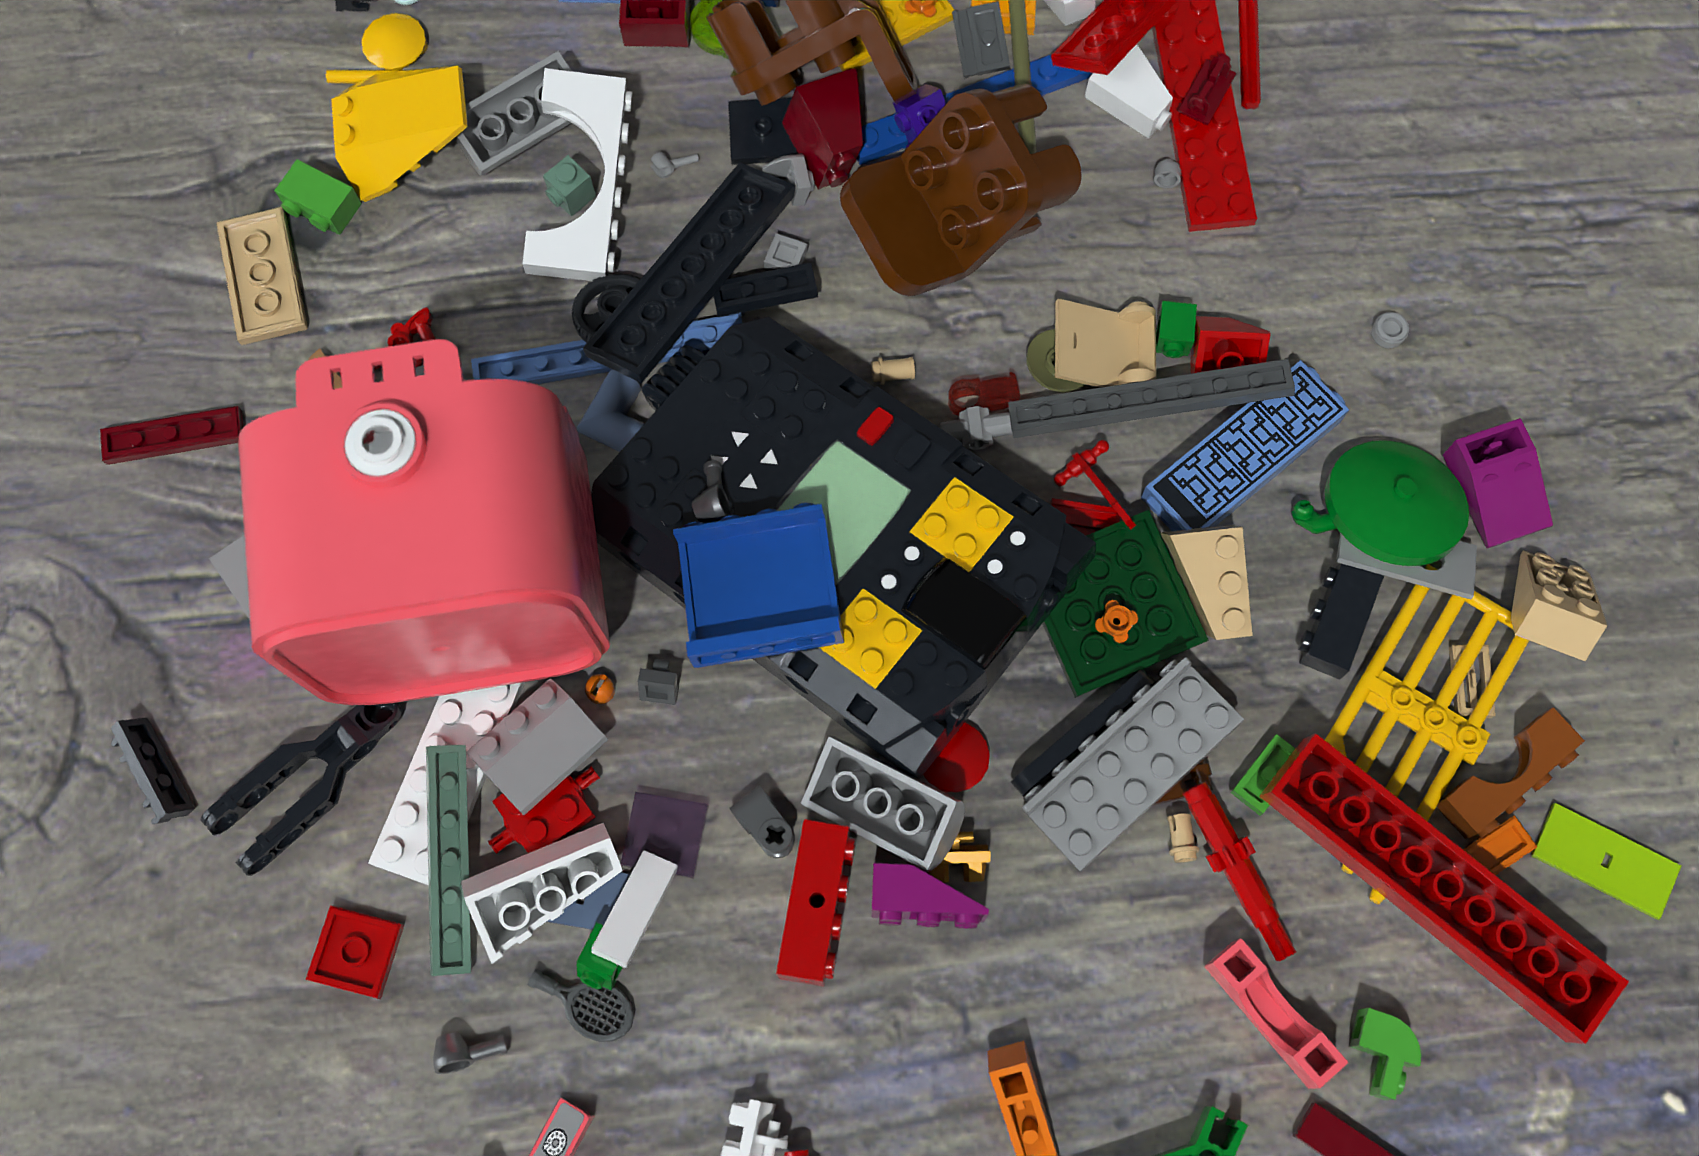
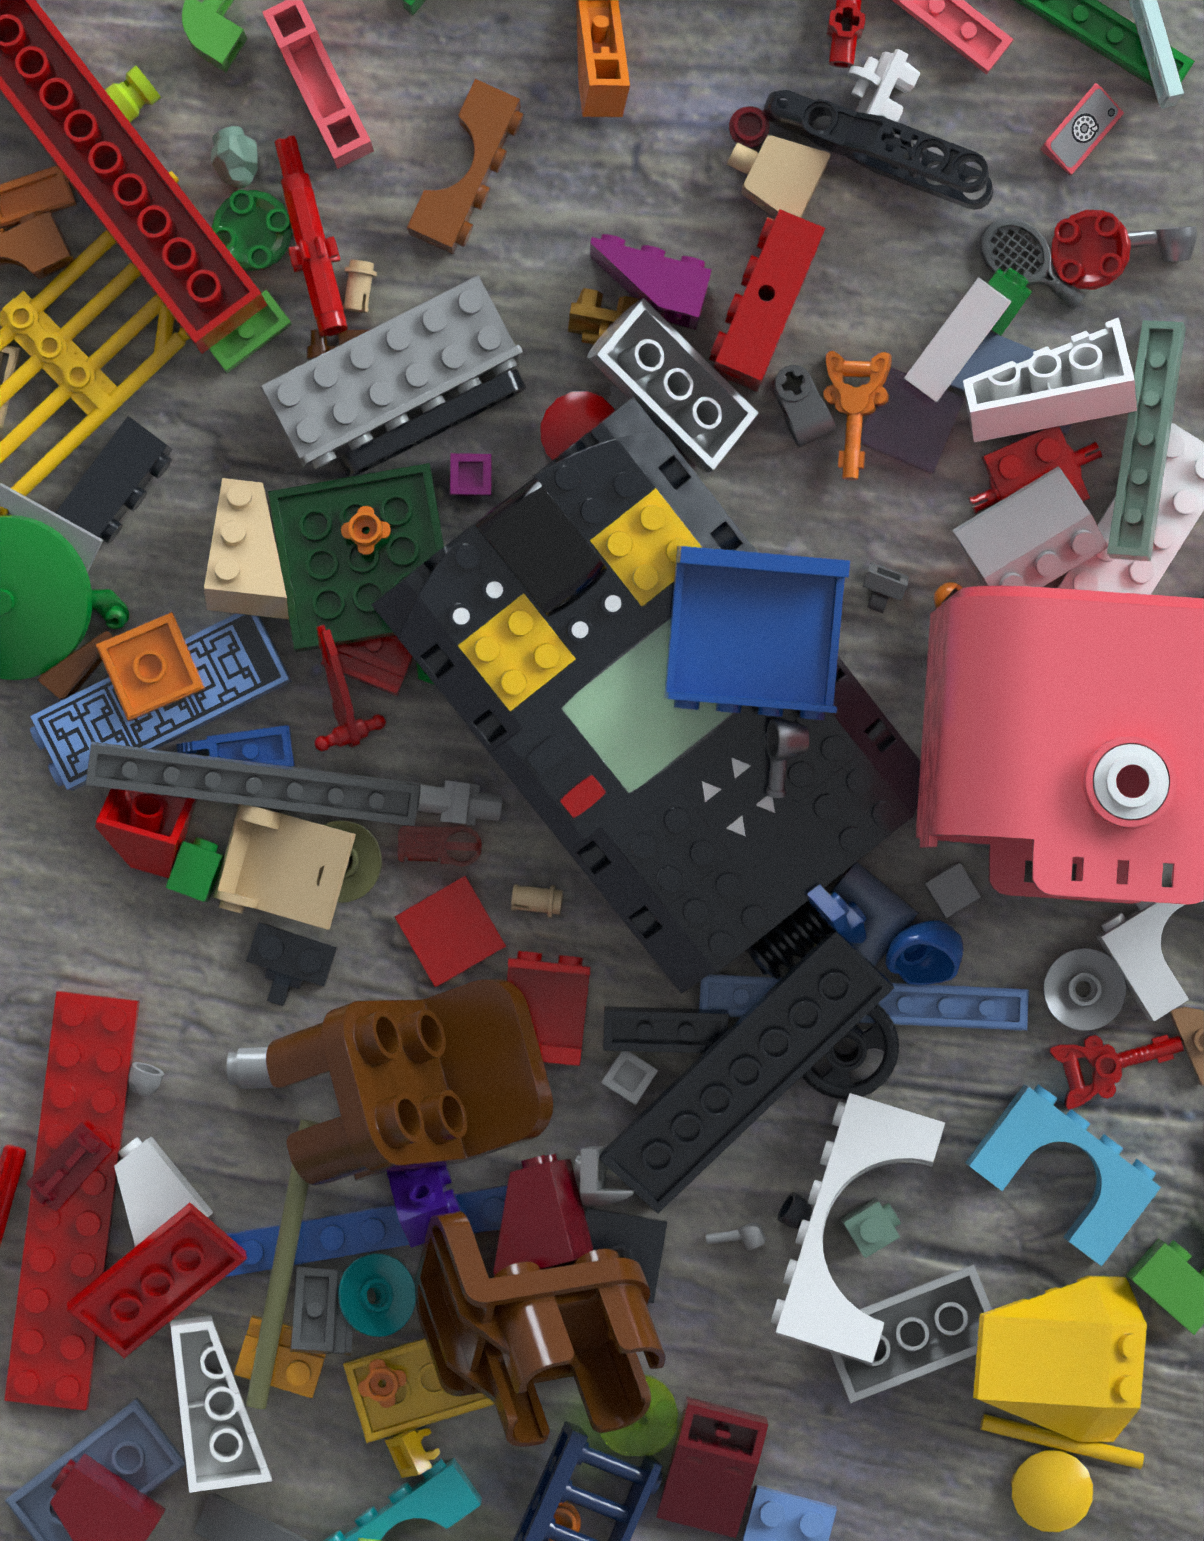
camera: 170 degrees left, 15 degrees up
(449, 290) = (1120, 1188): none -> medium azure arch
(530, 1028) = (1090, 249): none -> red dish
(571, 389) = (926, 953): none -> blue hair
(632, 188) = (794, 1211): none -> black hinge
(640, 396) = (843, 917): none -> blue slope
(716, 837) = (856, 402): none -> orange piece
(749, 1076) = (873, 144): none -> black piece
(829, 1027) = (780, 174): none -> tan torso
(859, 293) = (555, 1002): none -> red panel
(868, 1070) = (749, 126): none -> dark red plate
(934, 49) = (393, 1292): none -> teal dish
(957, 332) = (450, 931): none -> red tile
(1038, 696) = (470, 474): none -> magenta plate
(1080, 282) = (289, 960): none -> black hinge
(1088, 199) = (248, 1068): none -> light grey brick
(1109, 1016) = (445, 213): none -> dark orange arch
(1160, 432) = (260, 745): none -> blue hinge
(1264, 467) = (150, 666): none -> orange tile
(1291, 866) = (253, 228): none -> green dish
(1326, 454) = (72, 672): none -> reddish brown slope
(1327, 927) = (234, 156): none -> sand green rock
(1437, 964) = (133, 93): none -> lime wheel

